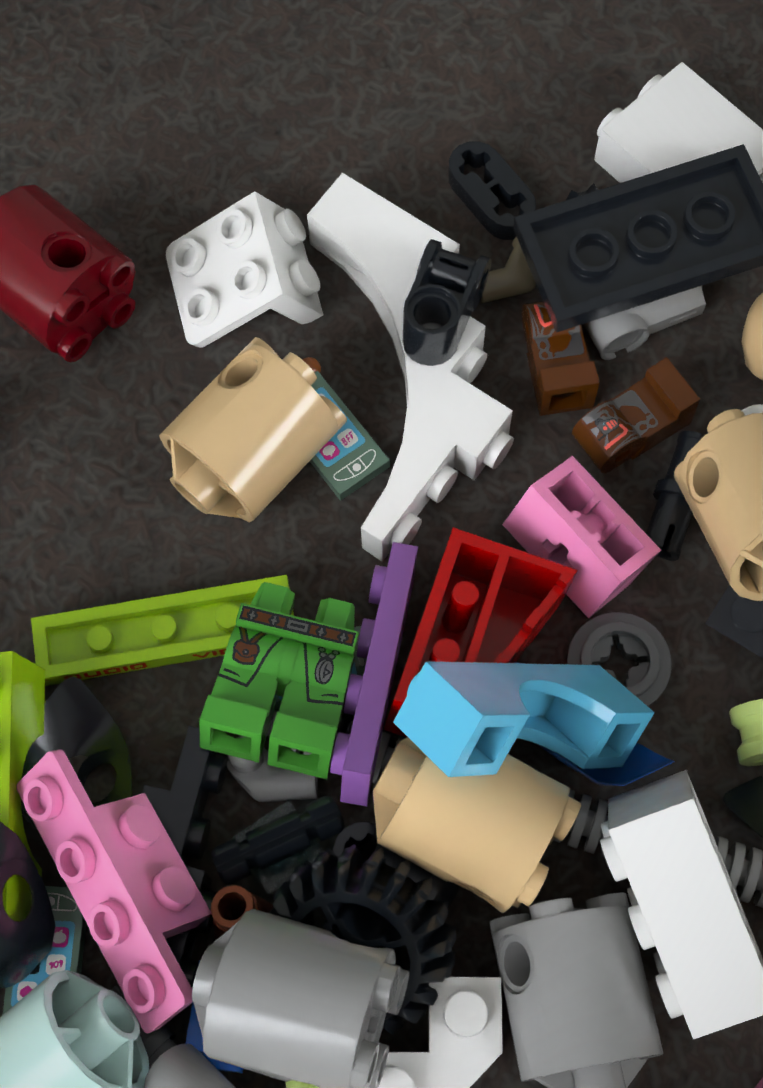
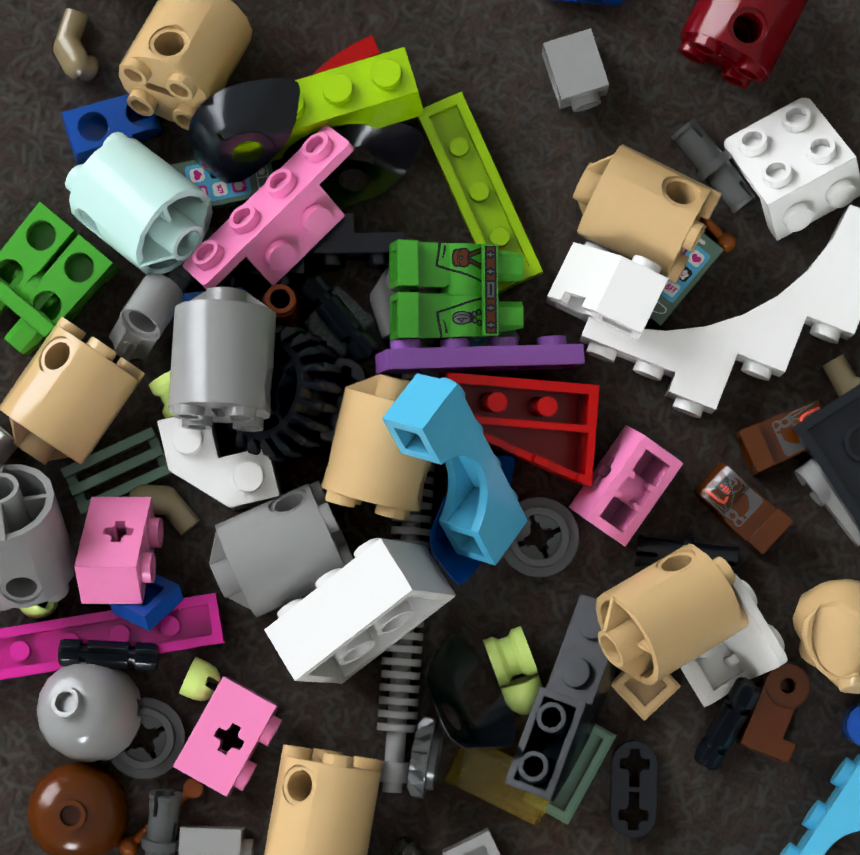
camera: 80 degrees right, 15 degrees up
(50, 479) = (576, 70): none -> light grey brick
(209, 357) = (714, 165): none -> dark grey pin
(331, 493) = (607, 288): none -> white brick
(444, 294) = (800, 334): black piece -> none

